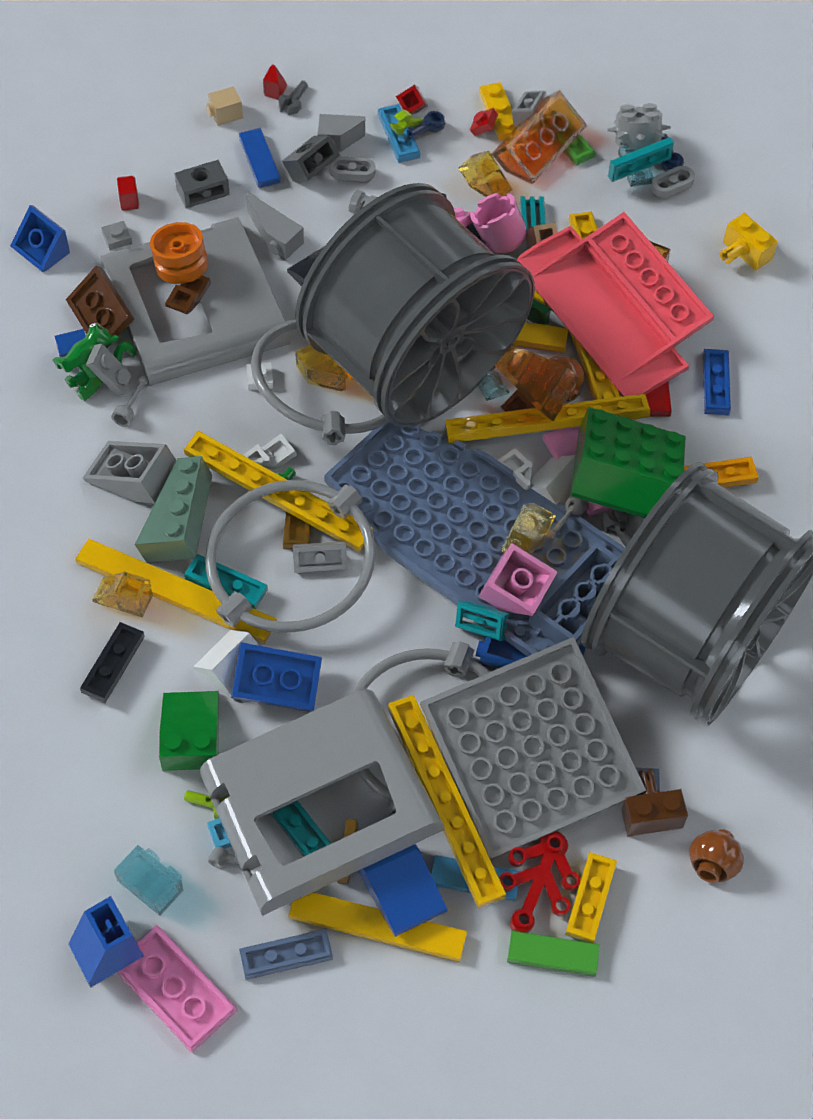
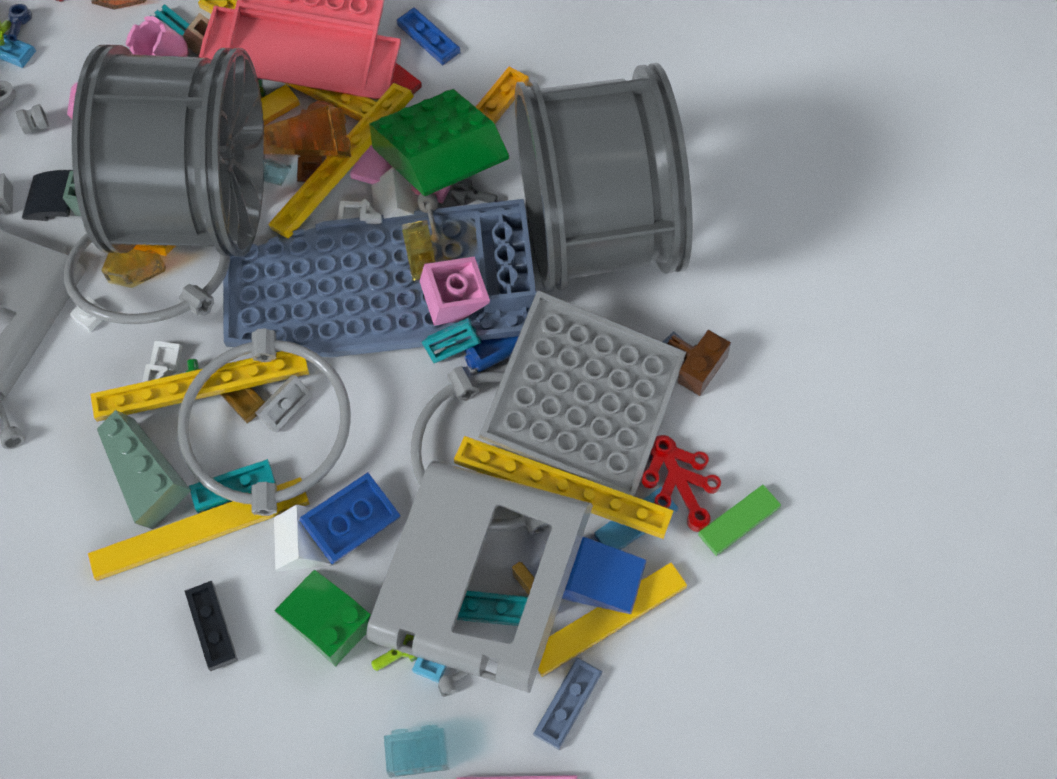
camera: 40 degrees left, 5 degrees up
(125, 593) = (163, 567): clear yellow slope -> none
(132, 469) = (66, 470): light grey slope -> none
(485, 175) = (103, 23): clear yellow slope -> none
(591, 897) = (724, 459): yellow plate -> none
(716, 856) = (771, 350): dark orange plant -> none

